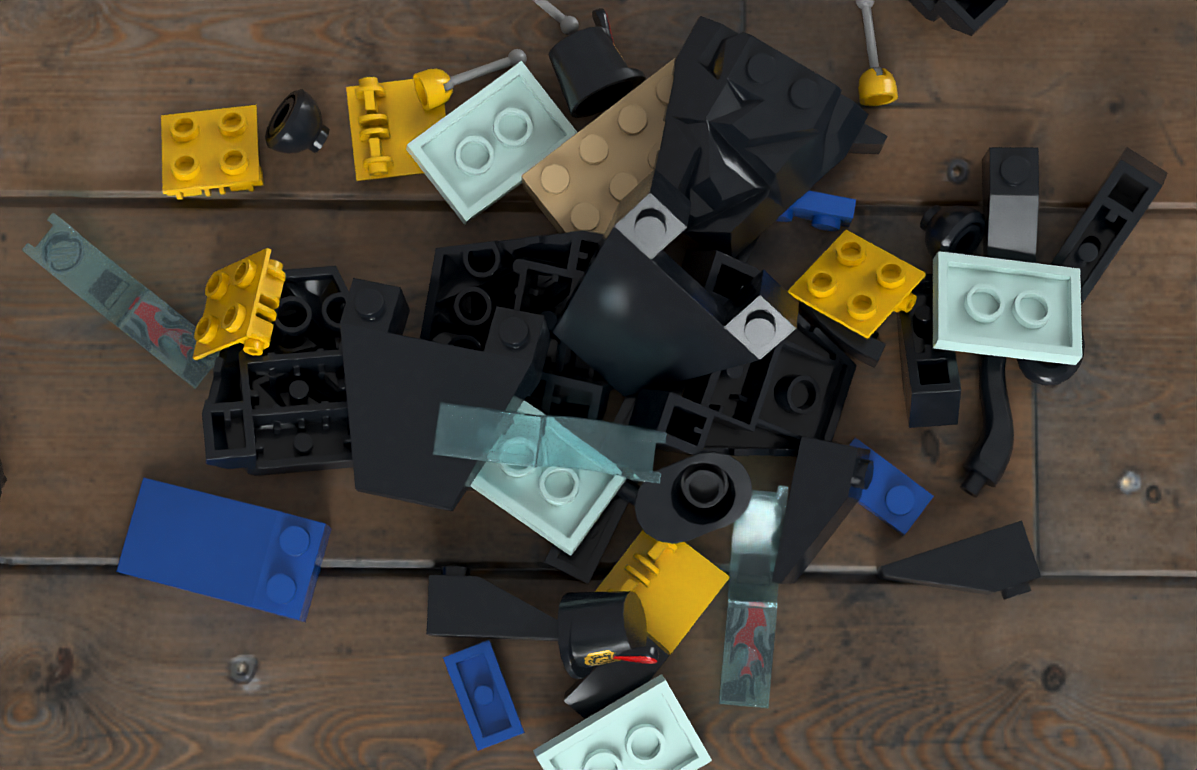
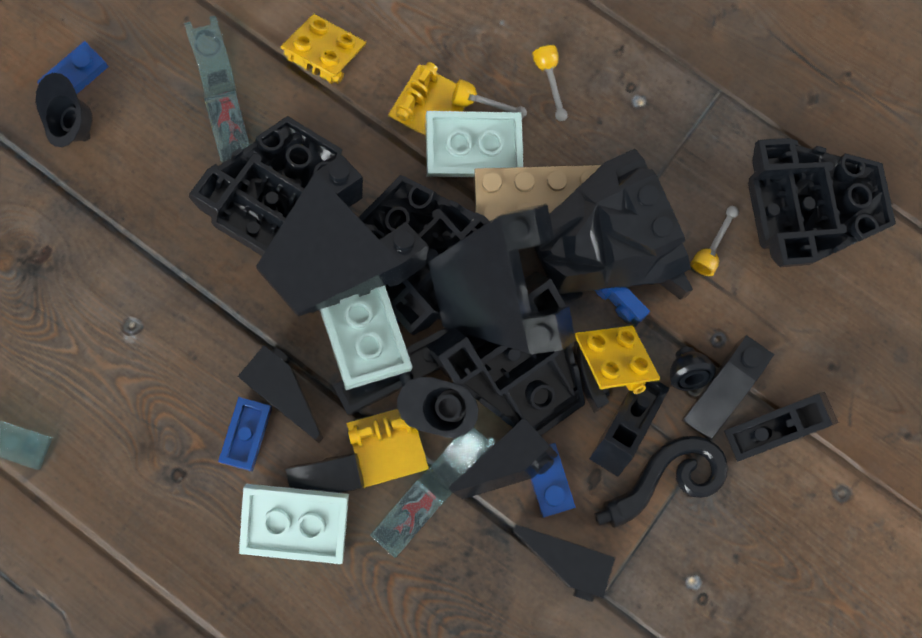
camera: 30 degrees right, 5 degrees down
(224, 549) = (171, 257): blue slope -> none
(240, 306) = (276, 132): yellow hinge -> none
(296, 125) = (378, 65): black brick -> none
(546, 441) = (376, 313): clear light blue piece -> none
(592, 69) = (555, 141): black hat -> none
(602, 630) = (331, 443): black hat -> none
(1007, 308) = (692, 431): light aqua plate -> none

